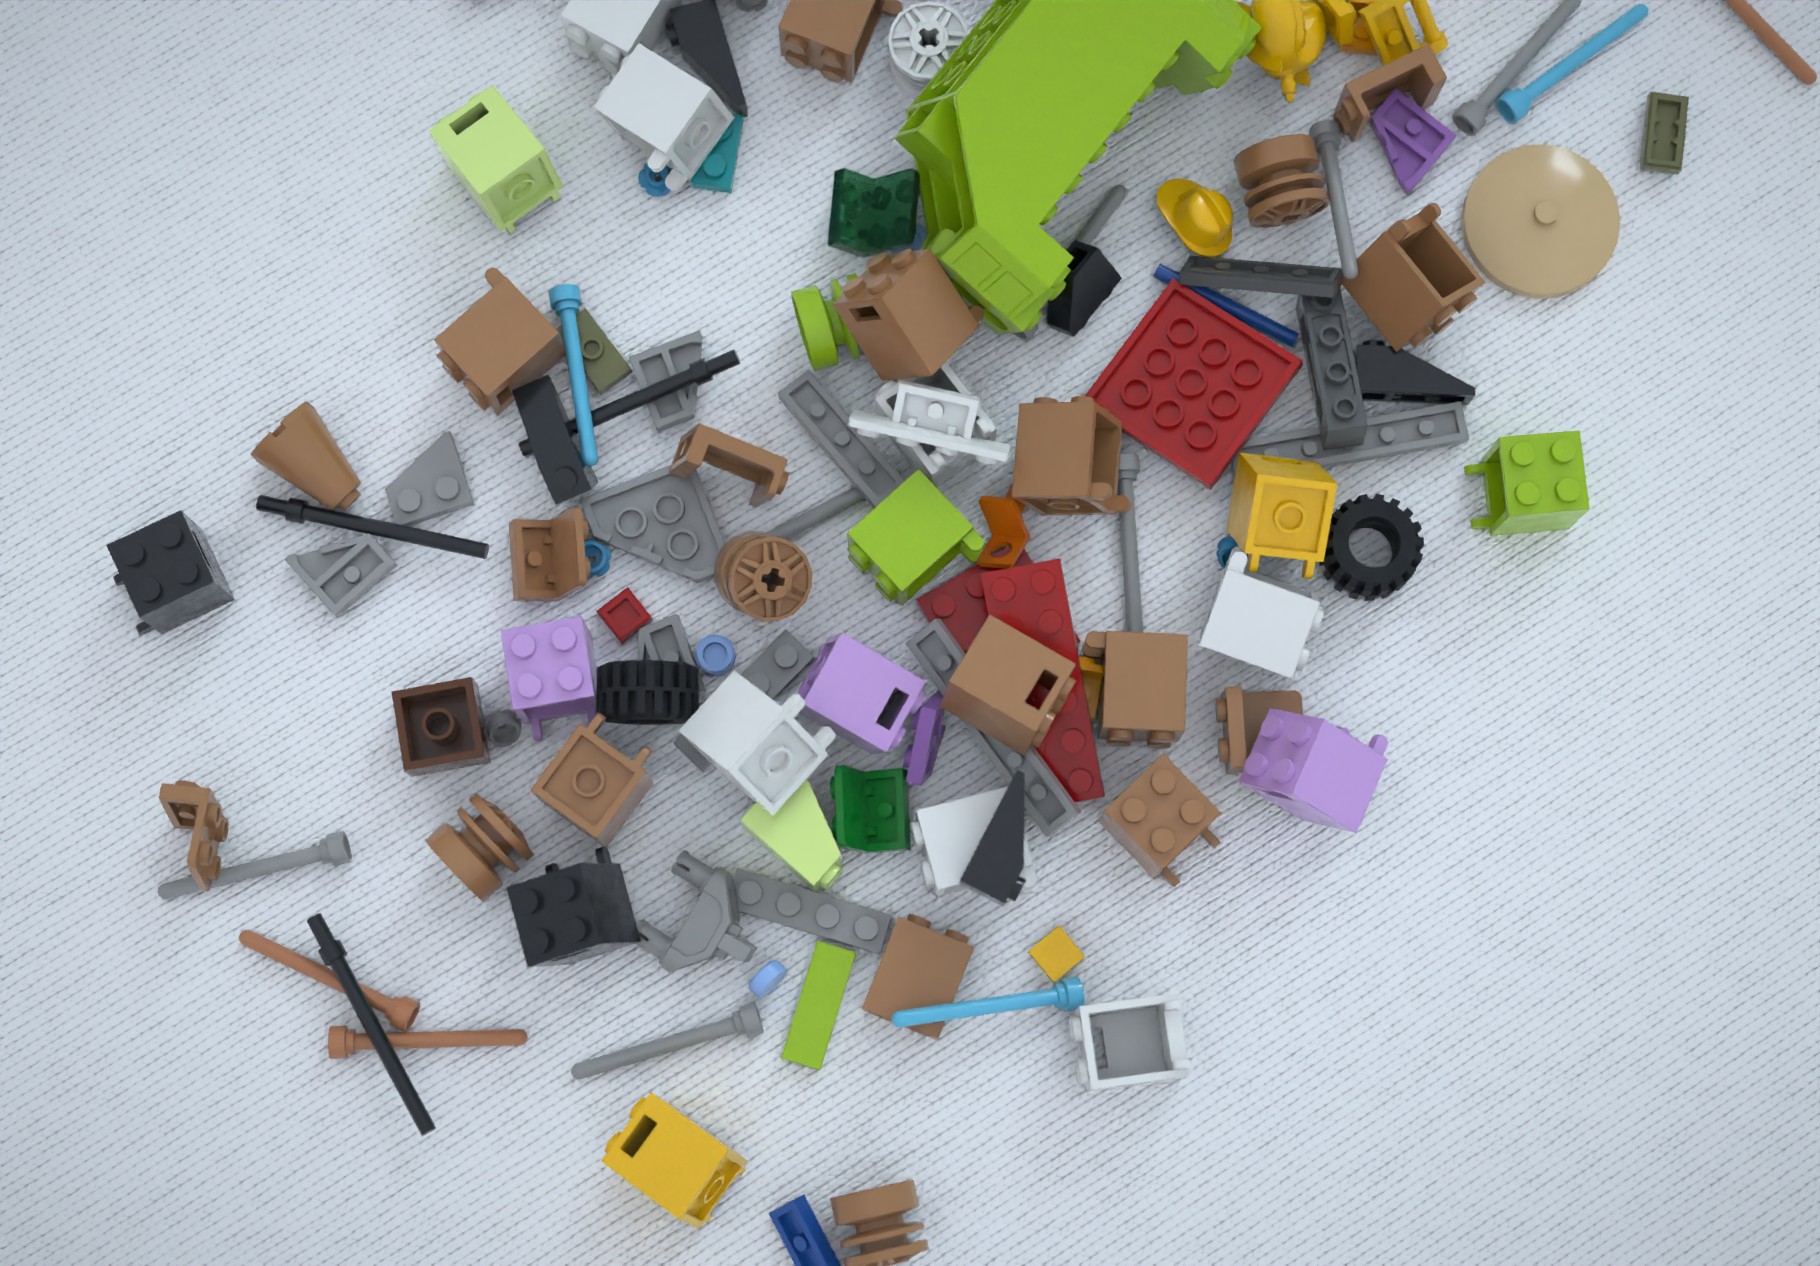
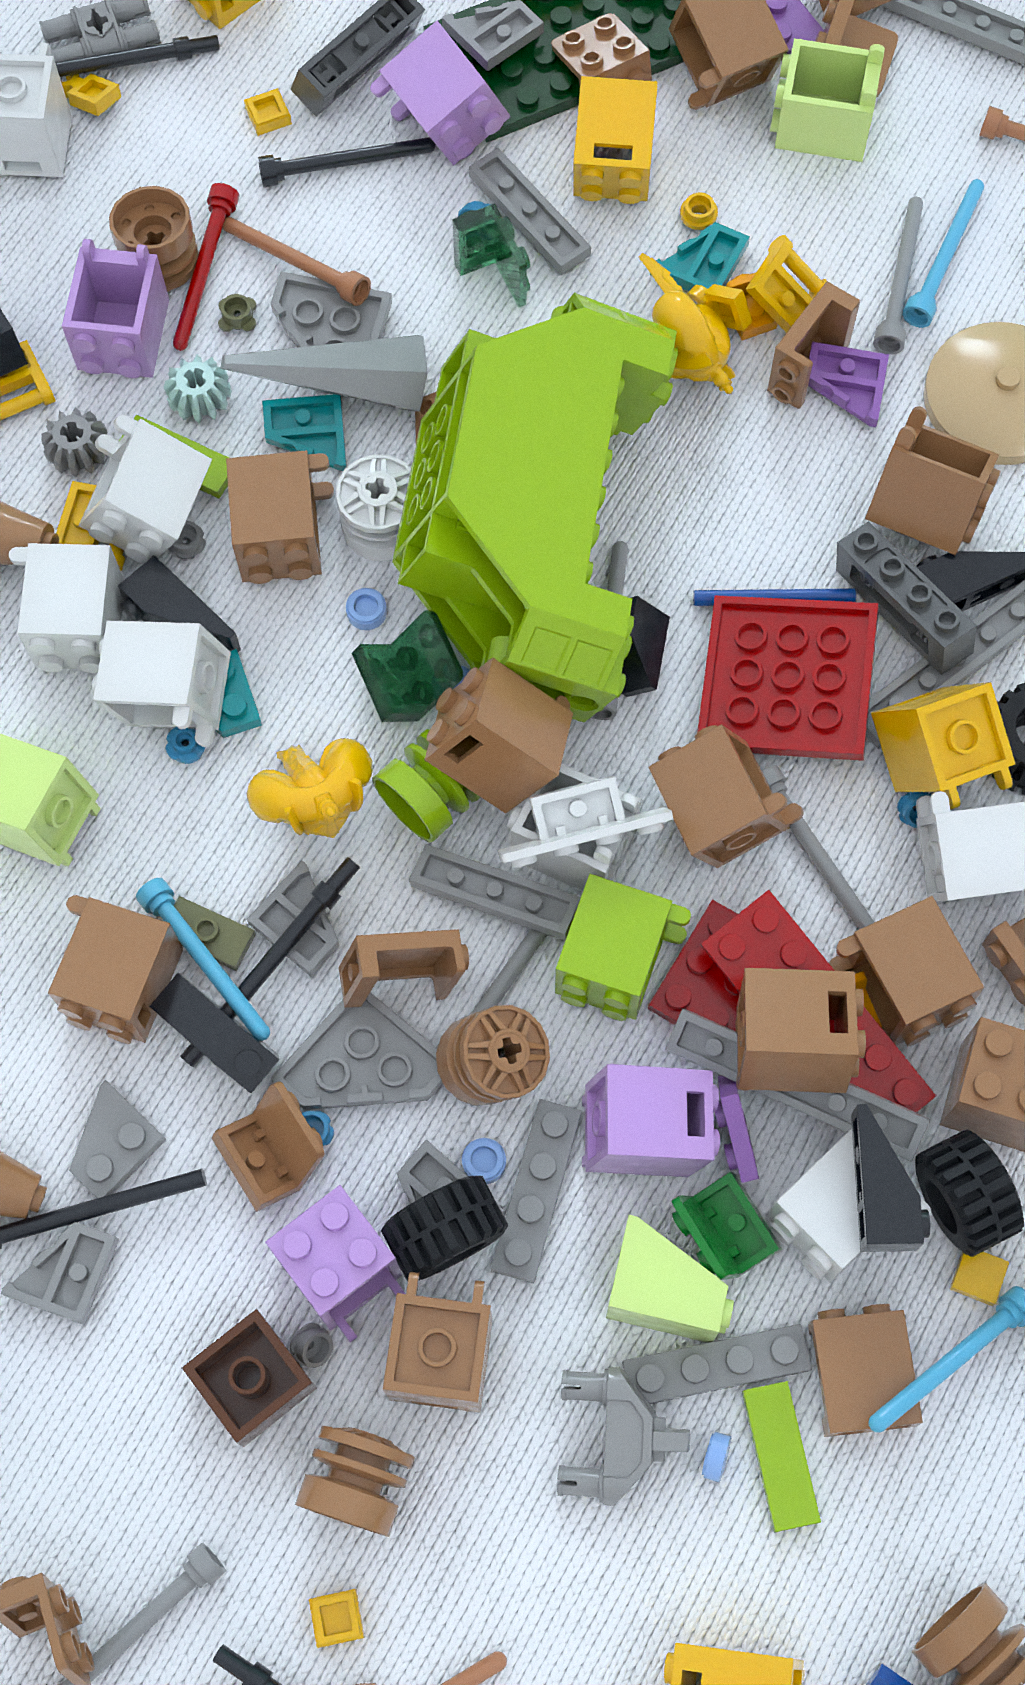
camera: 25 degrees left, 10 degrees down
(416, 941) = (336, 1618): none -> yellow tile
(573, 912) = (488, 1496): black container -> none
(624, 615) = (373, 1169): red tile -> none
(735, 284) = (313, 796): none -> yellow hair
(743, 1022) = (716, 1516): light grey piece -> none
(756, 741) = (584, 1215): white container -> none
(872, 135) = (366, 609): none -> light blue tile
(1007, 529) = (694, 891): orange bracket -> none
(1078, 885) = (969, 1192): none -> black tyre
(1197, 216) = (704, 529): yellow piece -> none
(1261, 276) = (796, 550): dark grey tile -> none
(1281, 180) = (763, 462): medium nougat wheel -> none
(1327, 141) = (778, 414): light grey piece -> none

